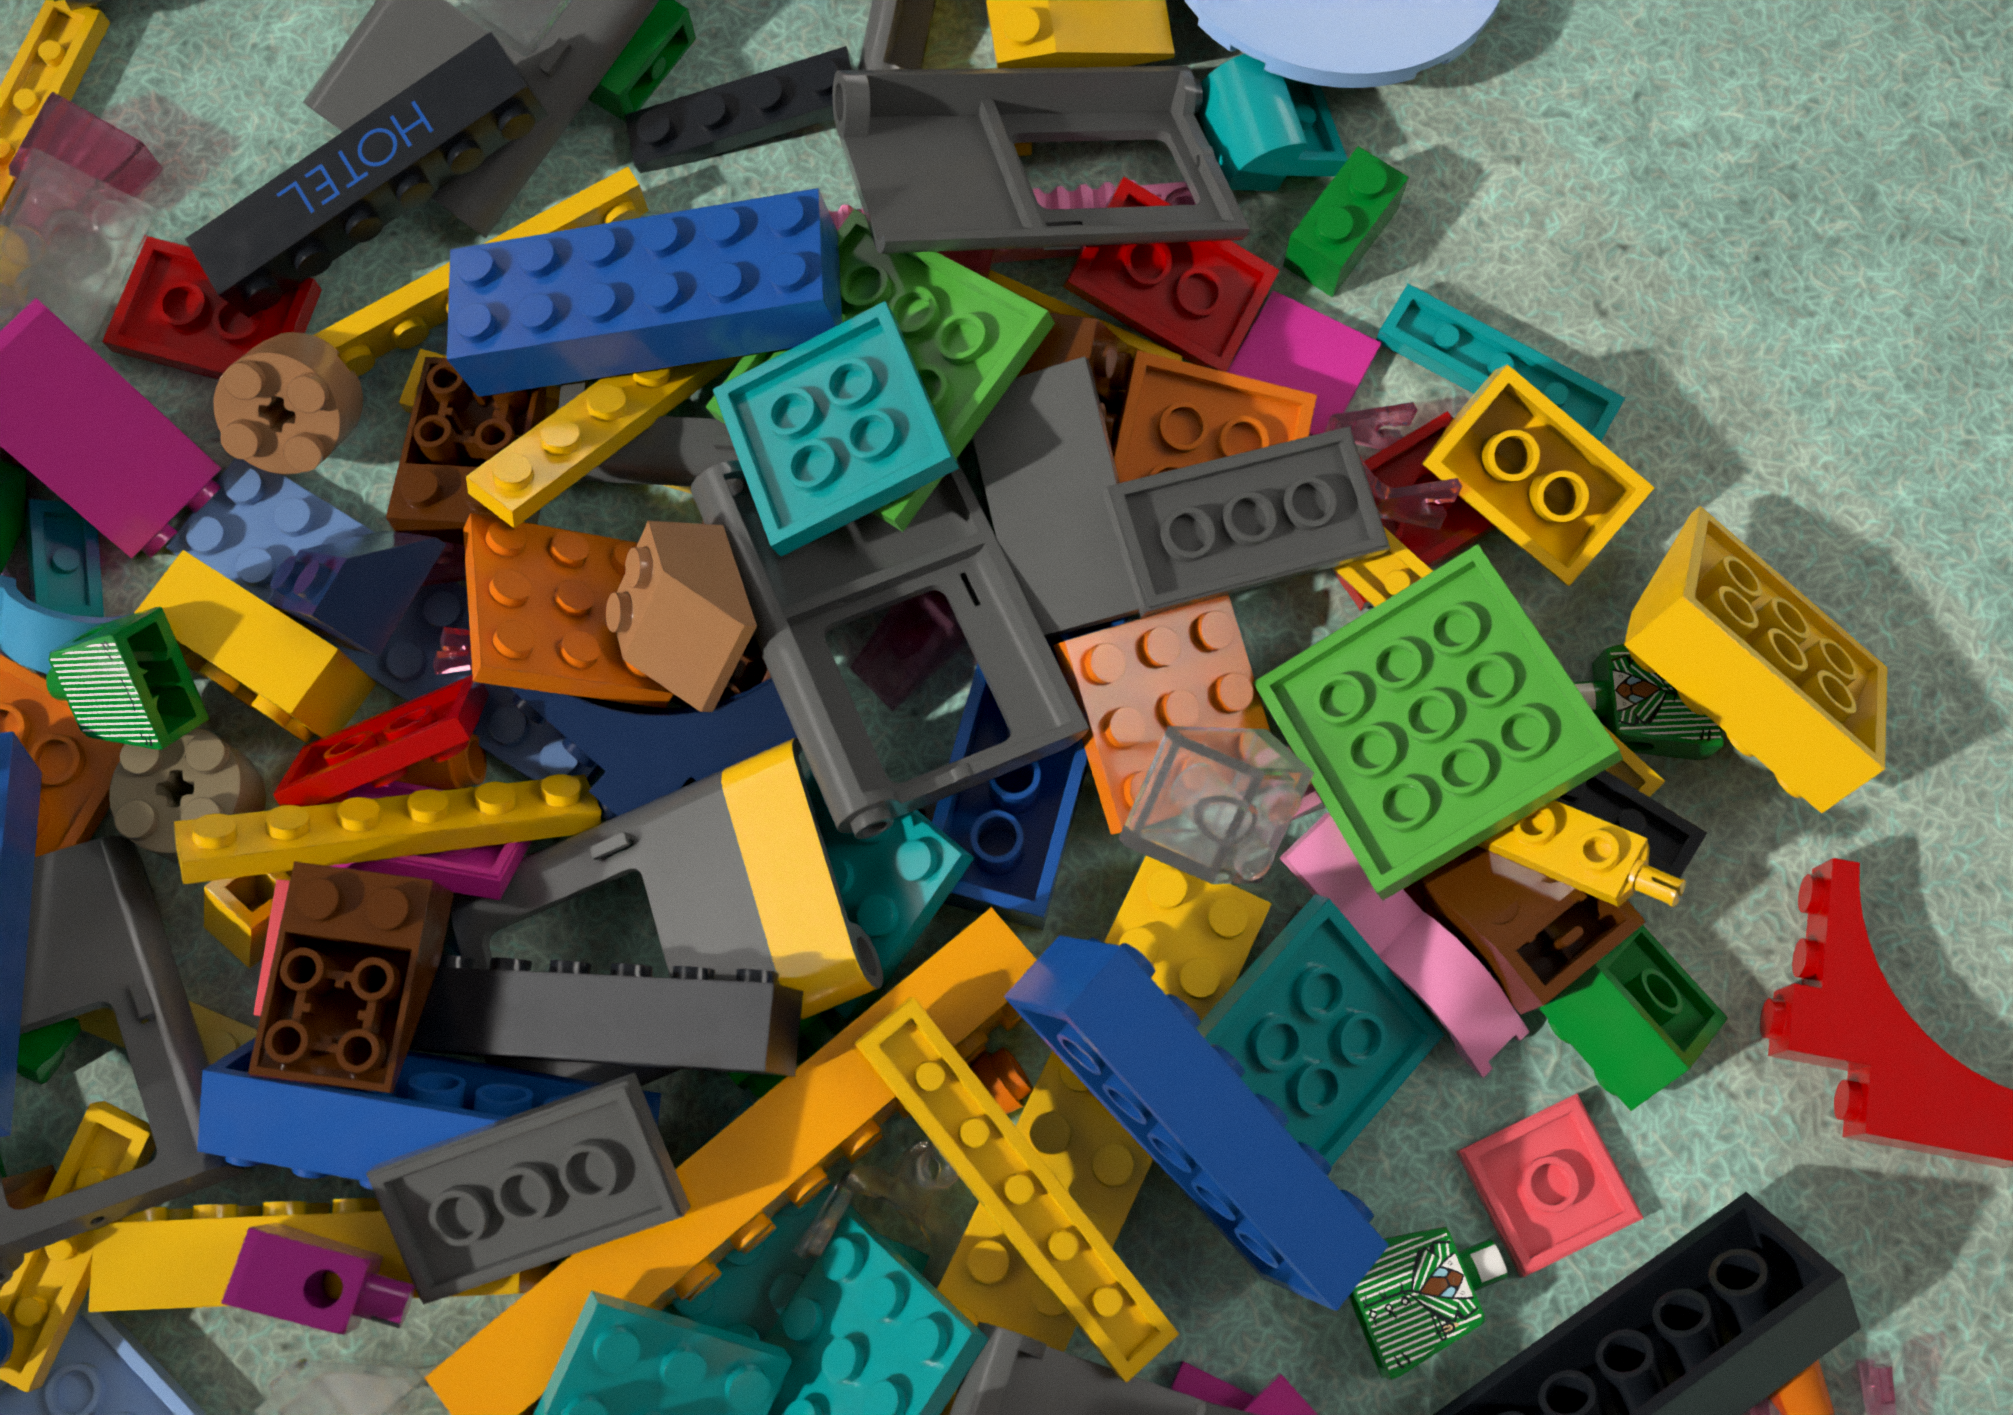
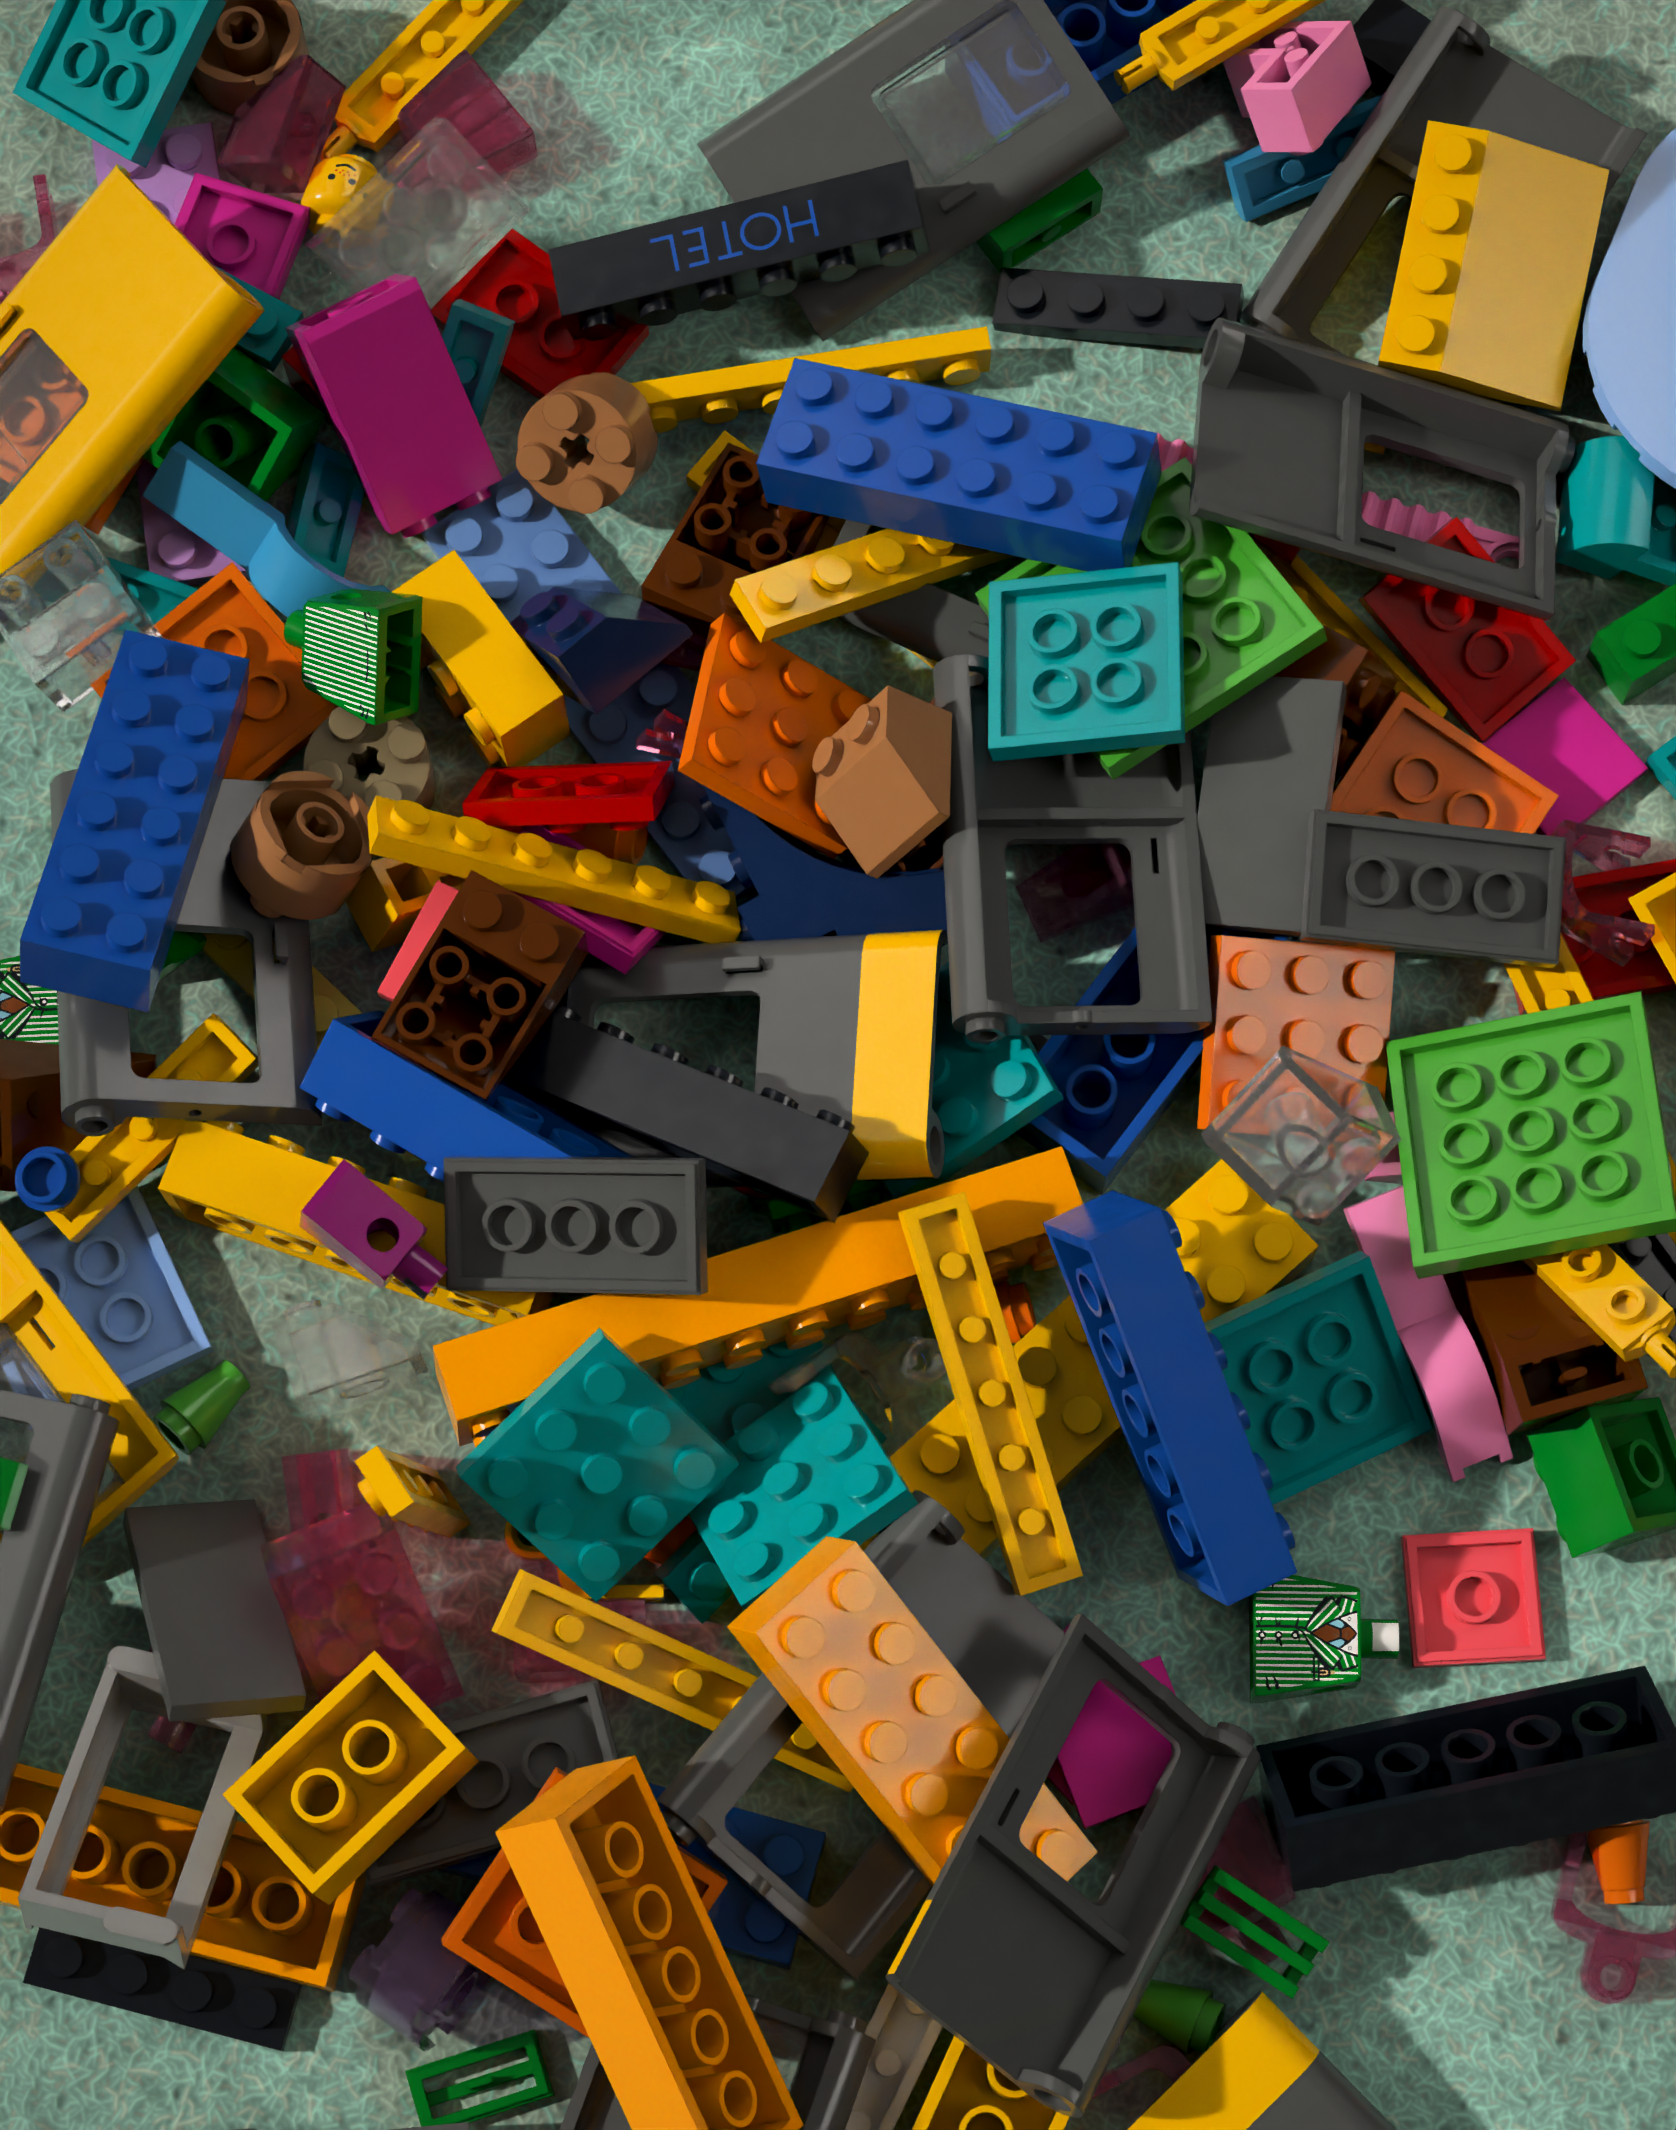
camera: 20 degrees right, 0 degrees up
(127, 899) = (302, 847): none -> medium nougat brick
(152, 359) = (477, 349): none -> teal plate

